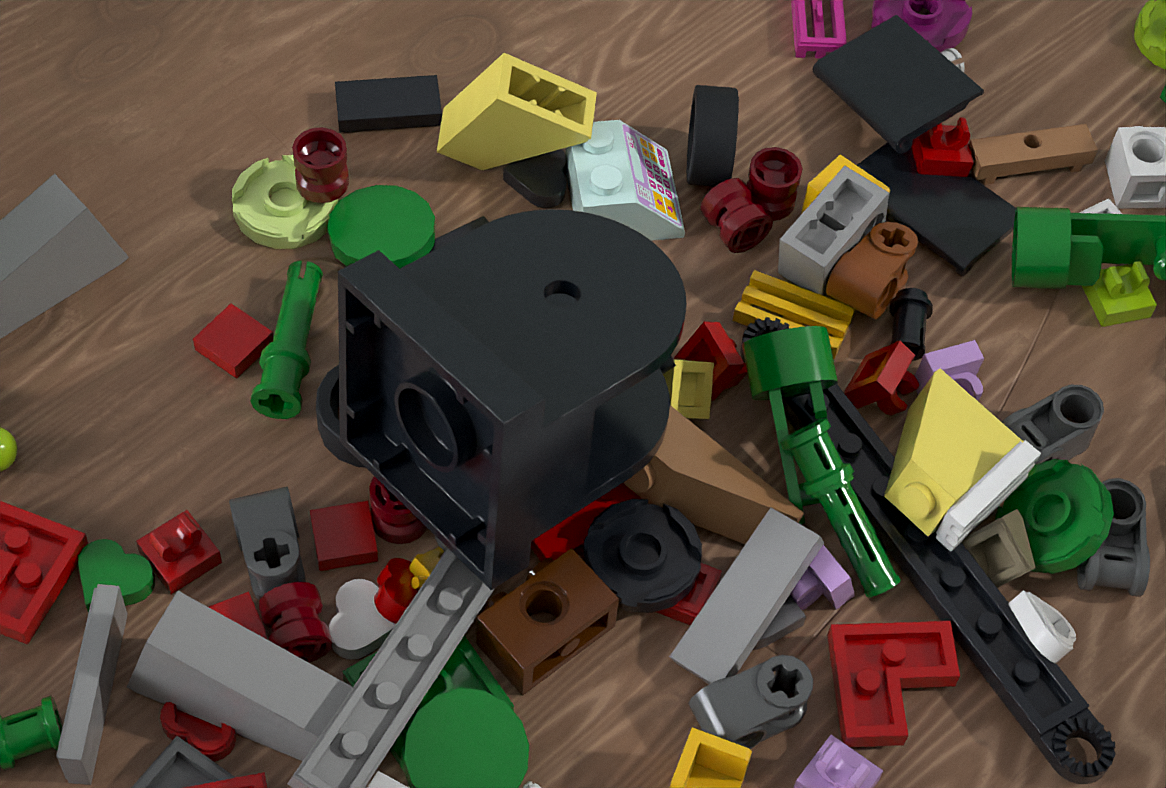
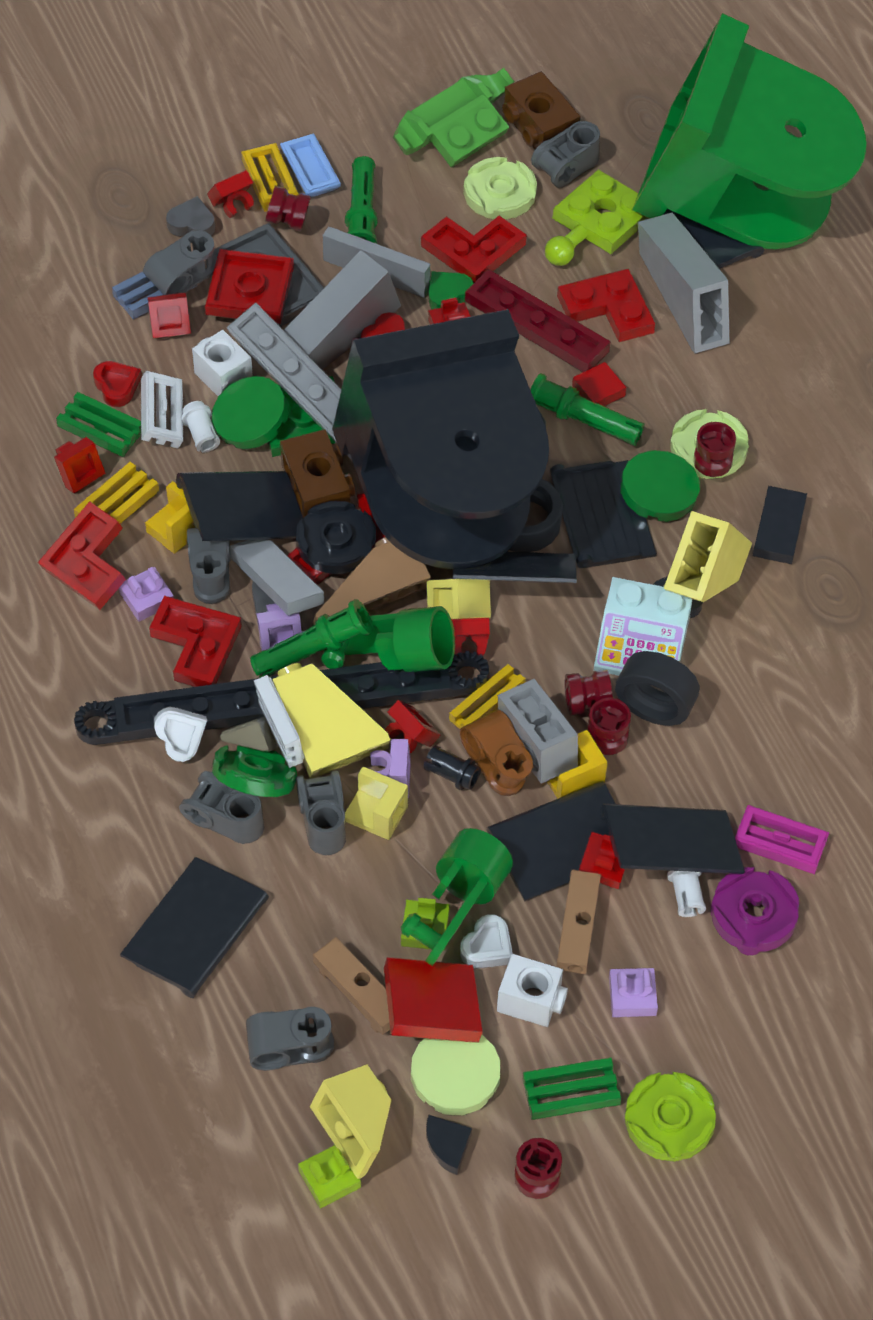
camera: 115 degrees right, 0 degrees up
(60, 367) = (612, 296): none -> red plate
(142, 441) = (539, 321): none -> dark red plate
(652, 687) = (241, 504): none -> black piece
(1008, 373) = (377, 803): none -> light yellow panel
(1074, 91) = (633, 992): none -> lavender tile

